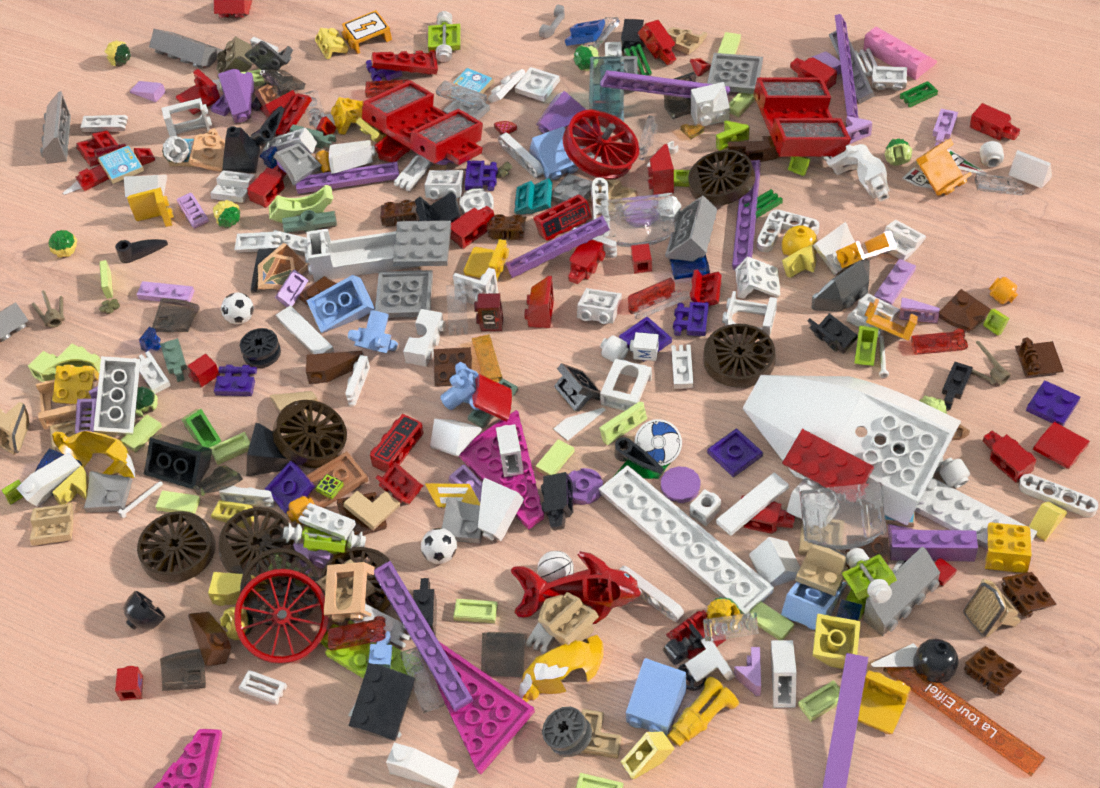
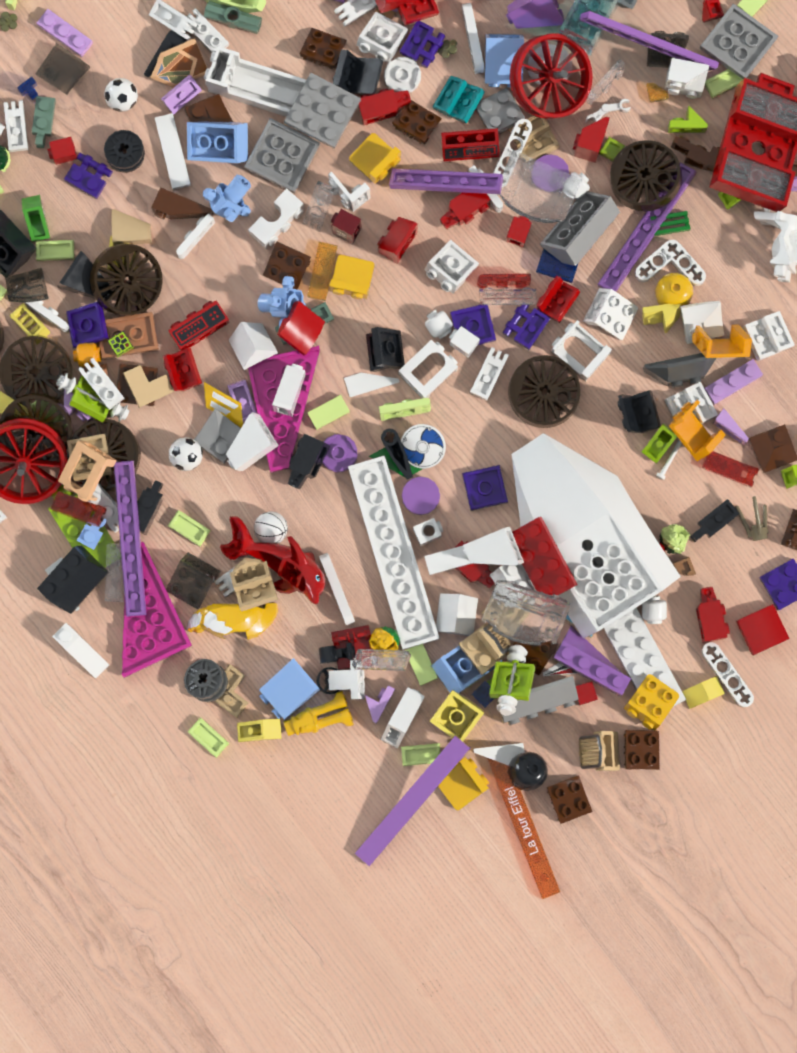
camera: 20 degrees right, 30 degrees up
(516, 350) = (352, 277): none -> yellow bracket
(778, 475) = (494, 548): none -> white slope

